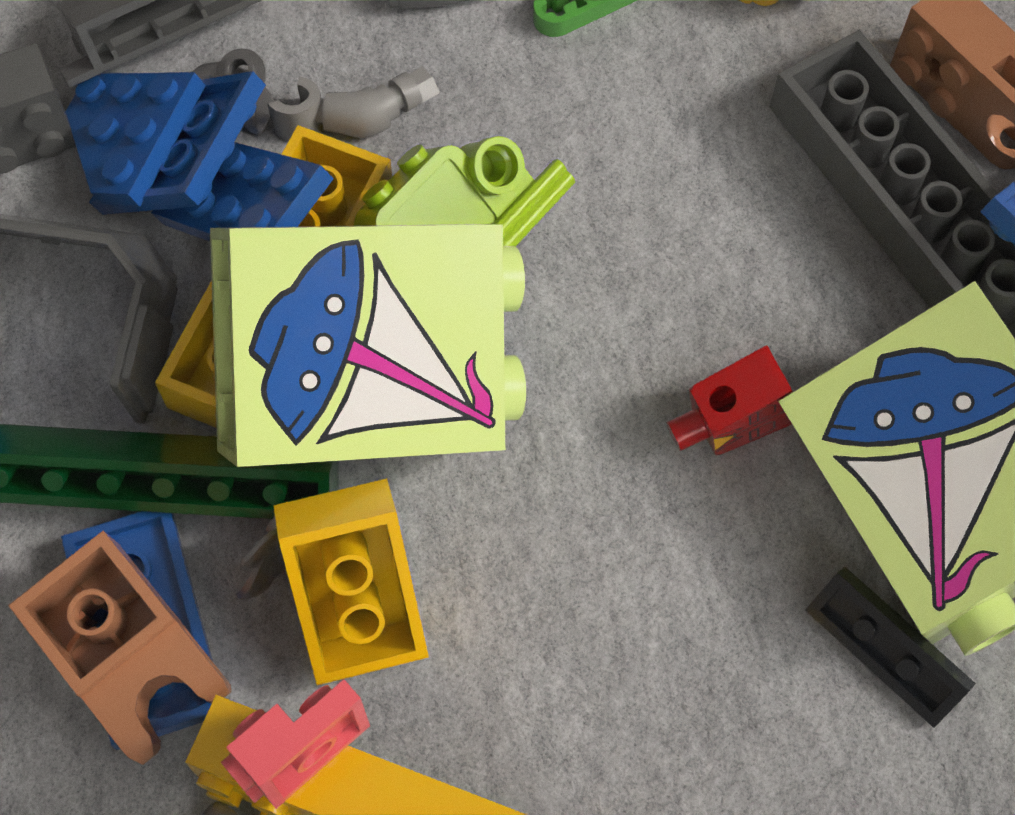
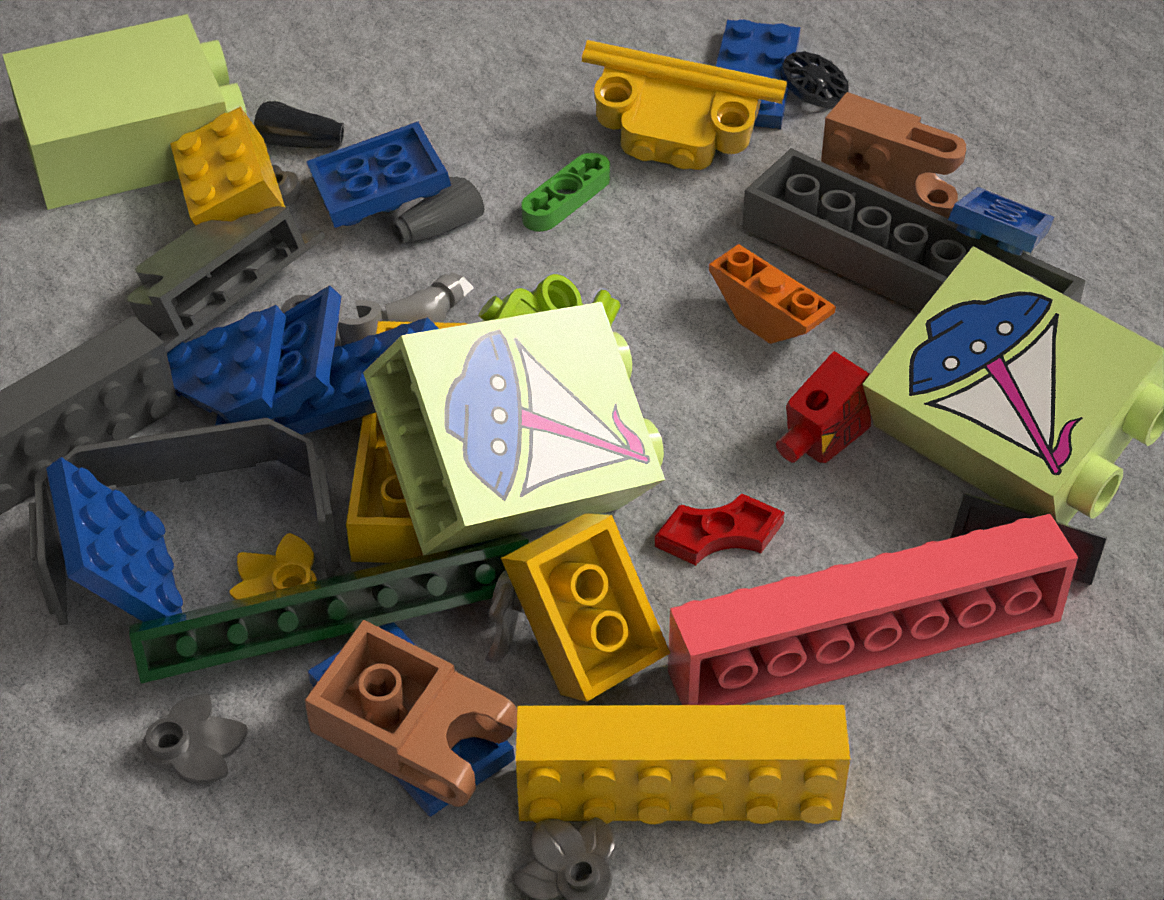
camera: 20 degrees left, 20 degrees down
(80, 396) = (269, 572): none -> yellow plate
(280, 755) = (612, 691): coral plate -> none
(586, 506) = (700, 532): none -> red tile
(663, 690) = (870, 613): none -> coral brick
(746, 222) = (767, 298): none -> orange slope

